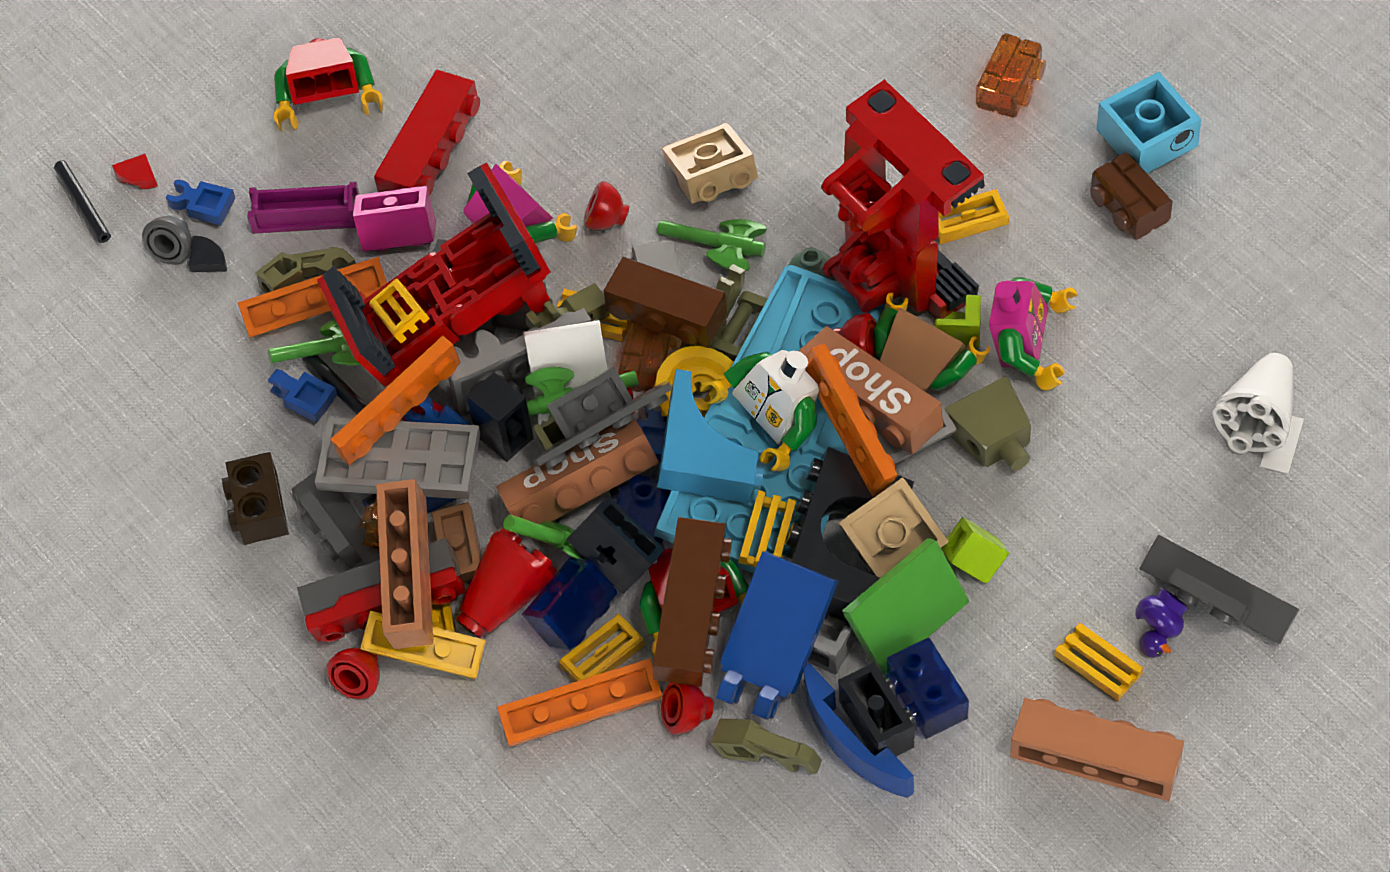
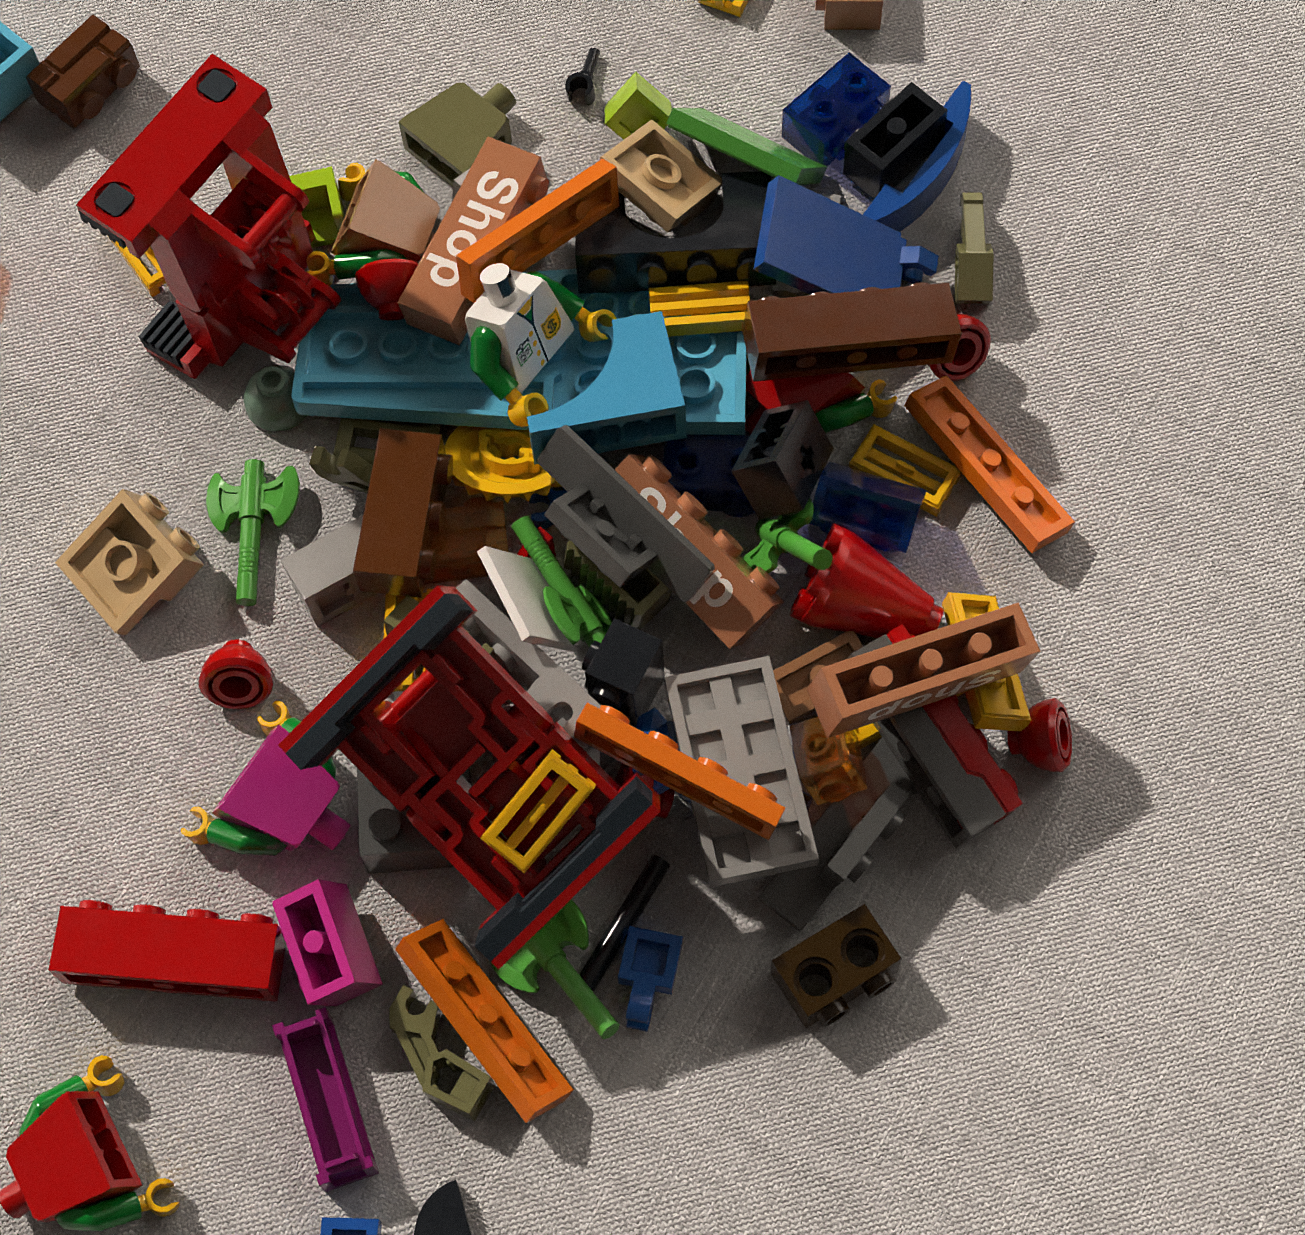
camera: 110 degrees left, 10 degrees up
(1019, 326) = (324, 127): torso -> none
(1020, 525) = (584, 78): none -> black hand

